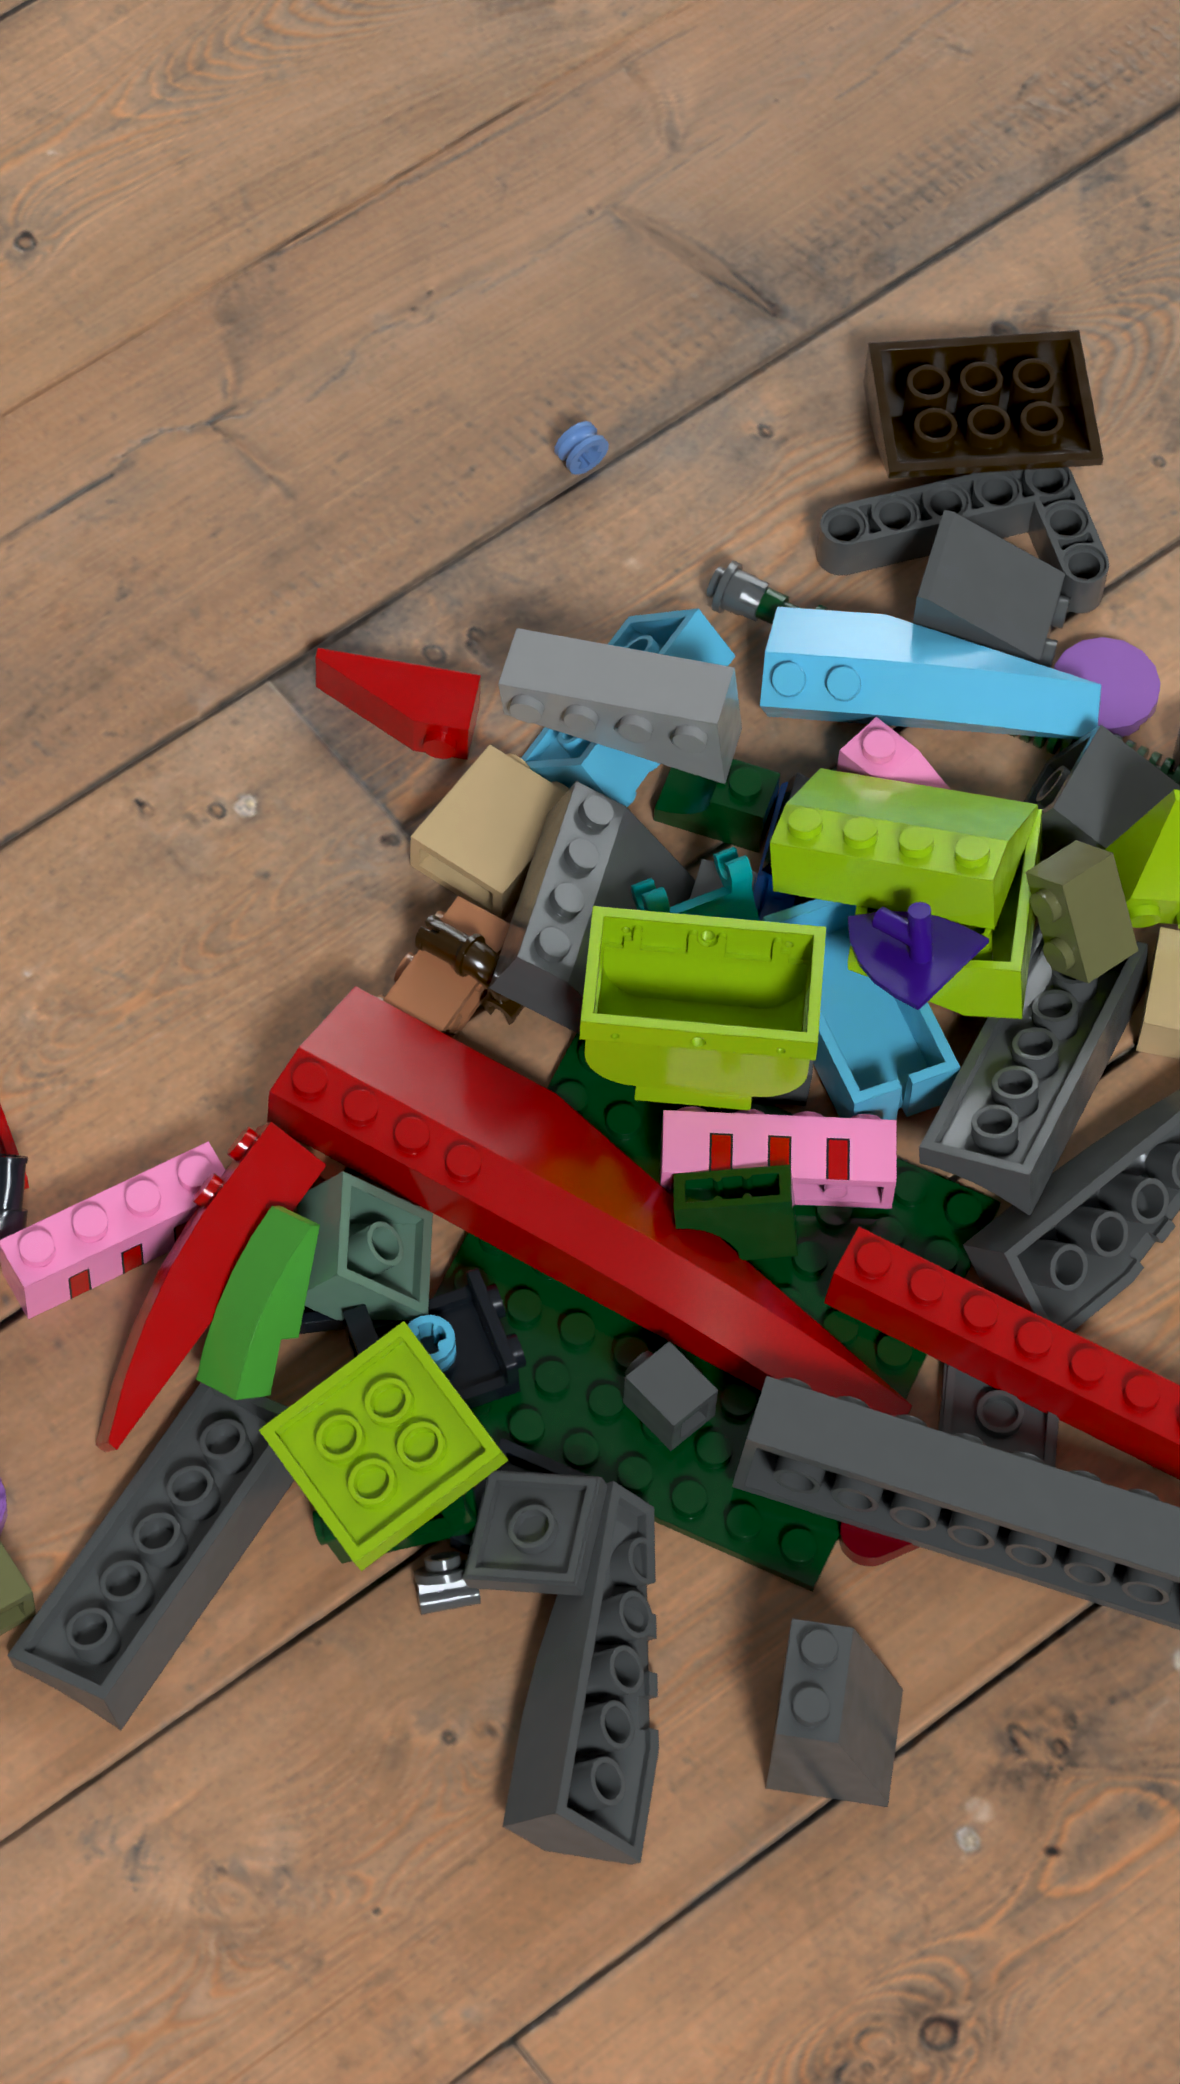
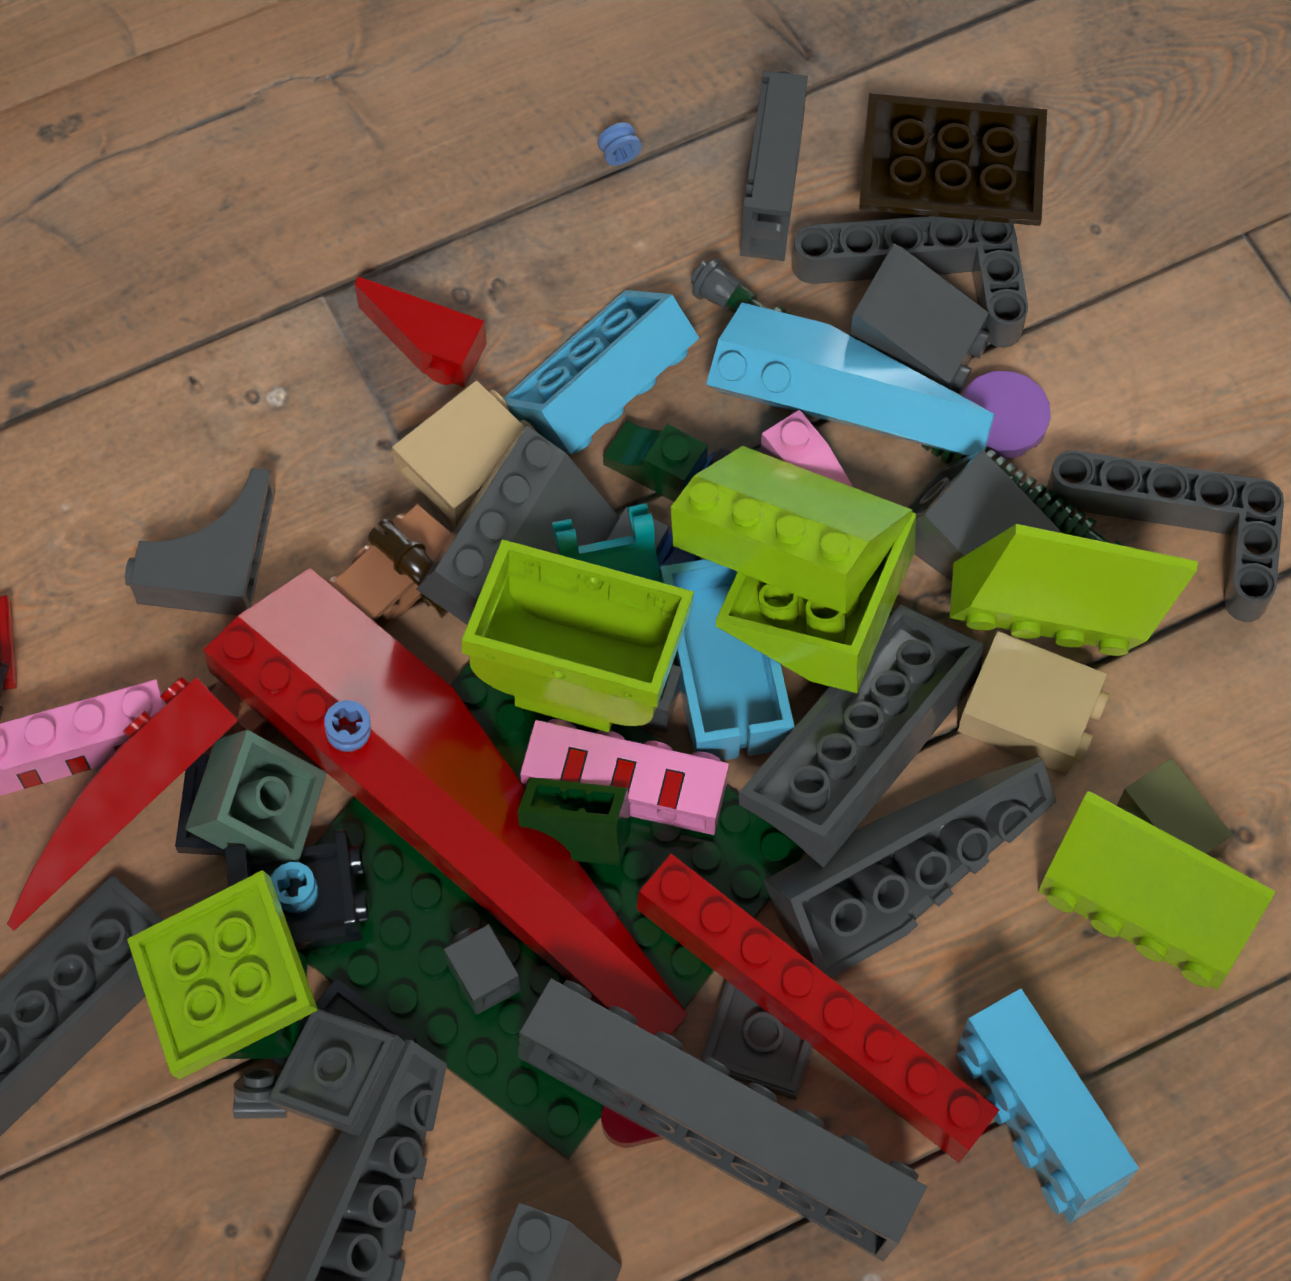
camera: 15 degrees right, 5 degrees up
(225, 1011) = (212, 567): none -> dark grey arch
(260, 1306) = (155, 832): bright green slope -> none
(463, 1161) = (352, 711): none -> medium blue bush
(626, 700) = (586, 364): light grey wedge -> none
(774, 442) = (773, 165): none -> dark grey door
(911, 950) = (770, 622): dark purple shield -> none
(1081, 911) = (926, 610): olive brick -> none

